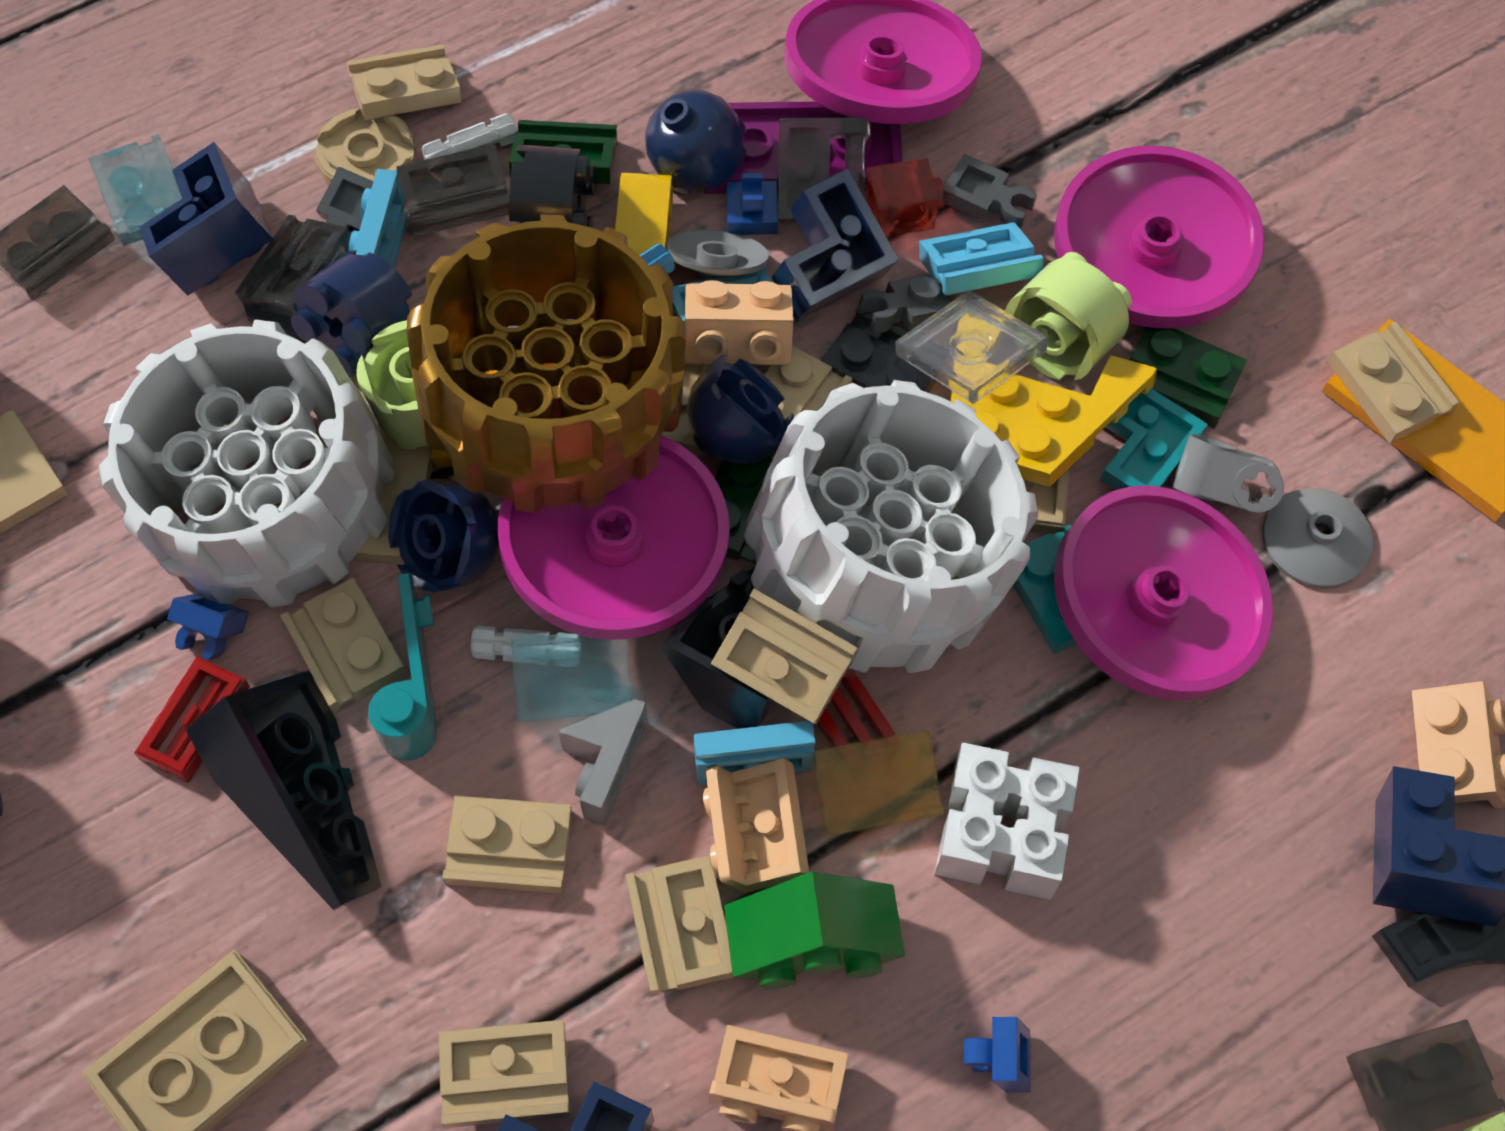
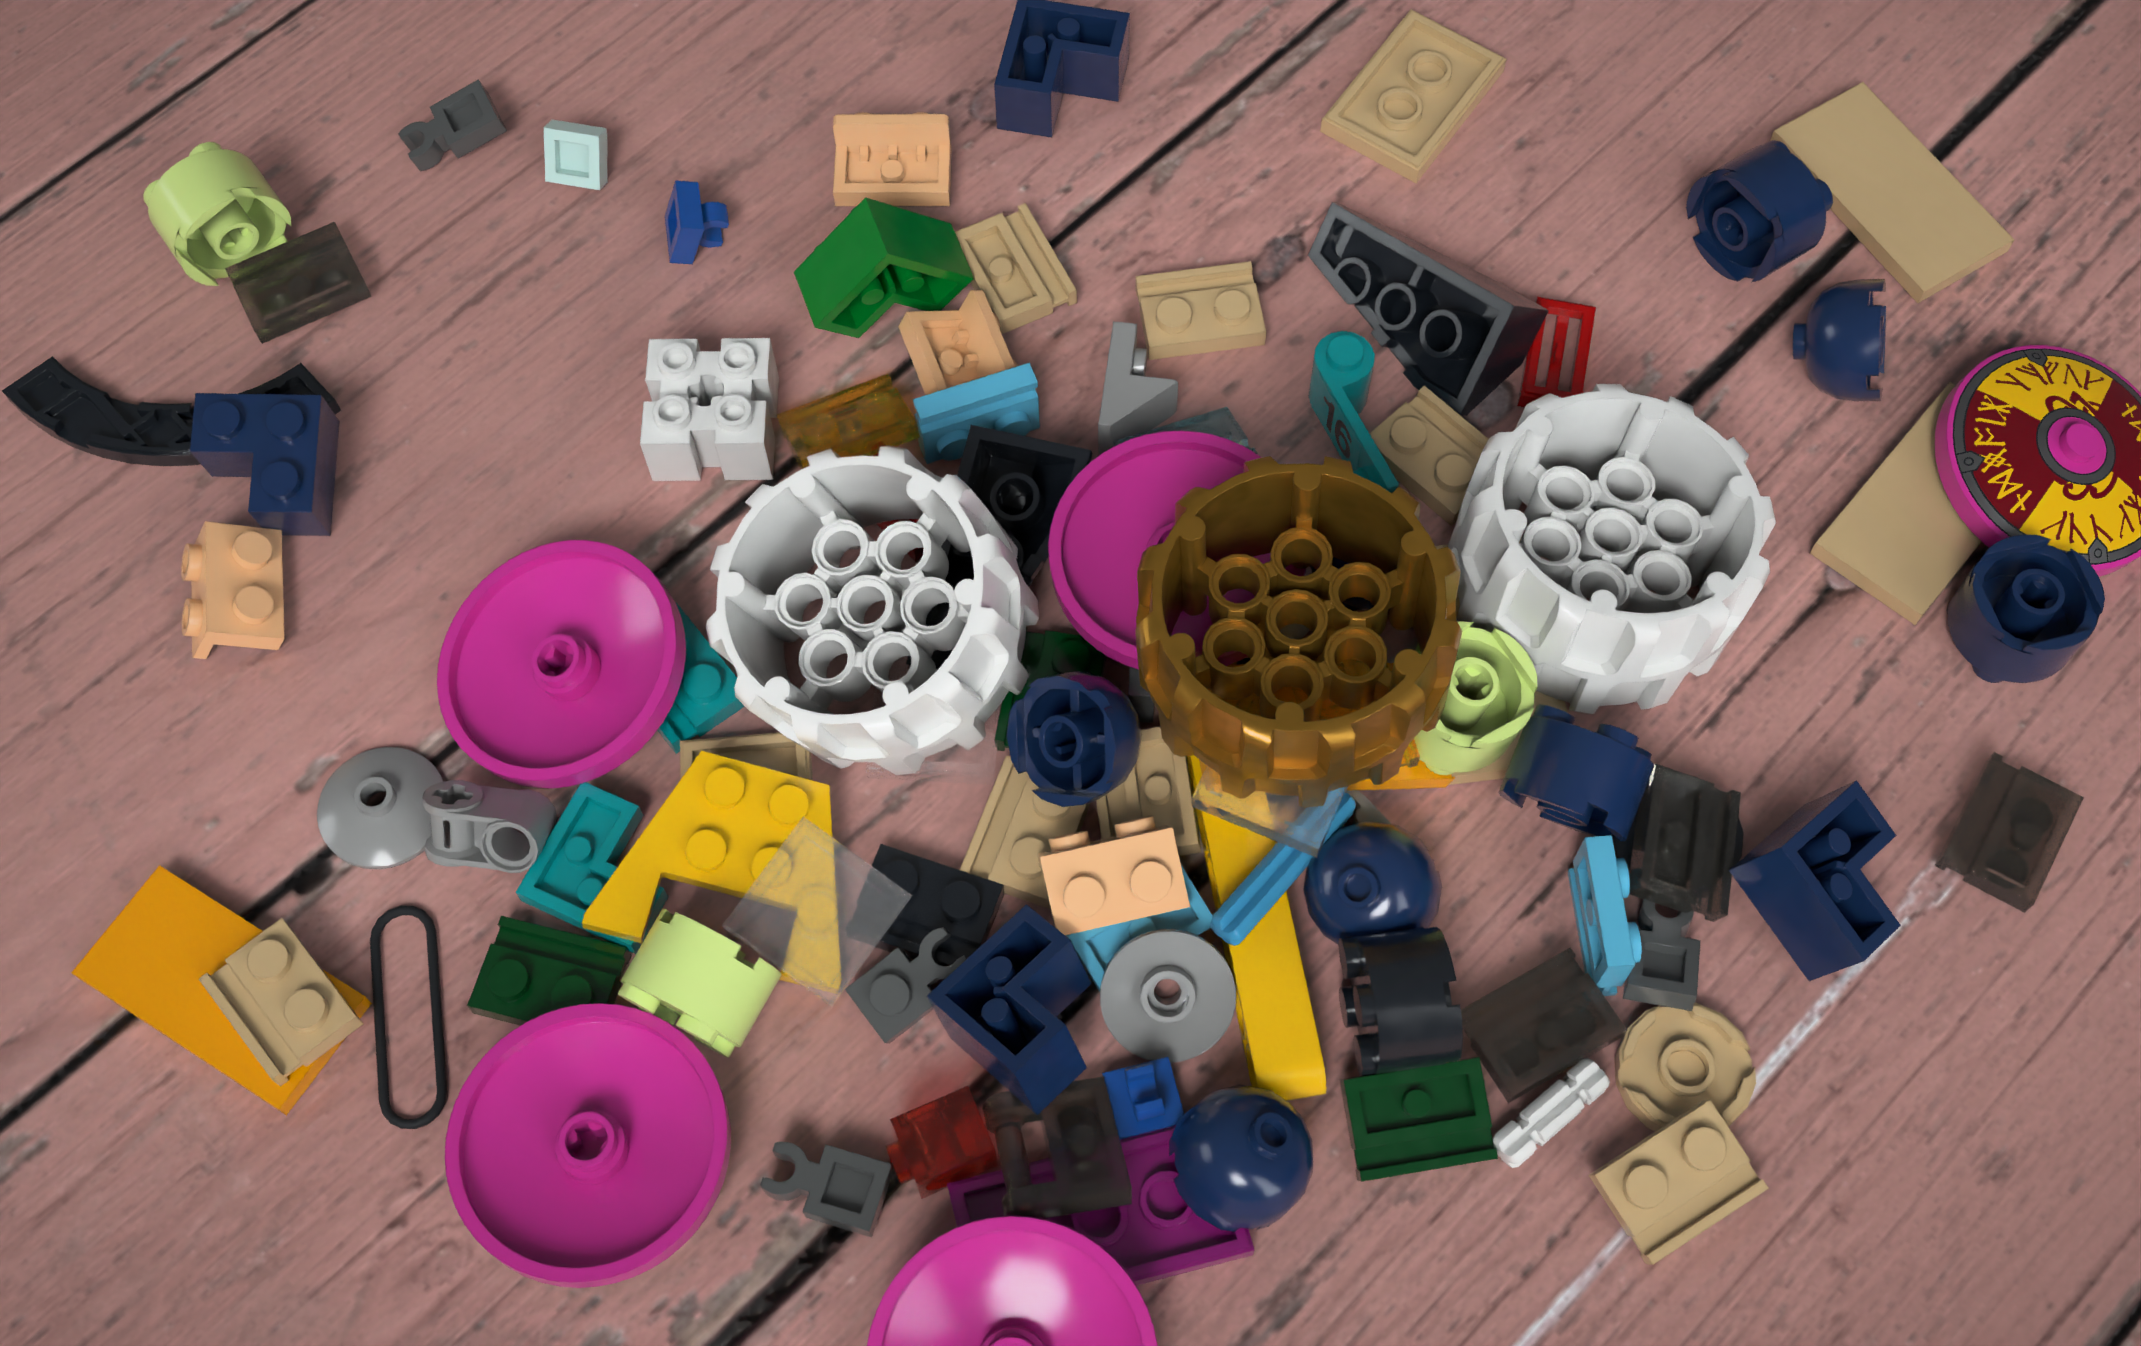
camera: 170 degrees right, 0 degrees up
(135, 185) = (1945, 933): clear light blue plate -> none
(503, 1072) = (1138, 127): tan plate -> none
(784, 656) = (964, 442): tan plate -> none
(980, 258) = (823, 1065): medium azure plate -> none
(1314, 377) = (379, 1019): none -> black piece

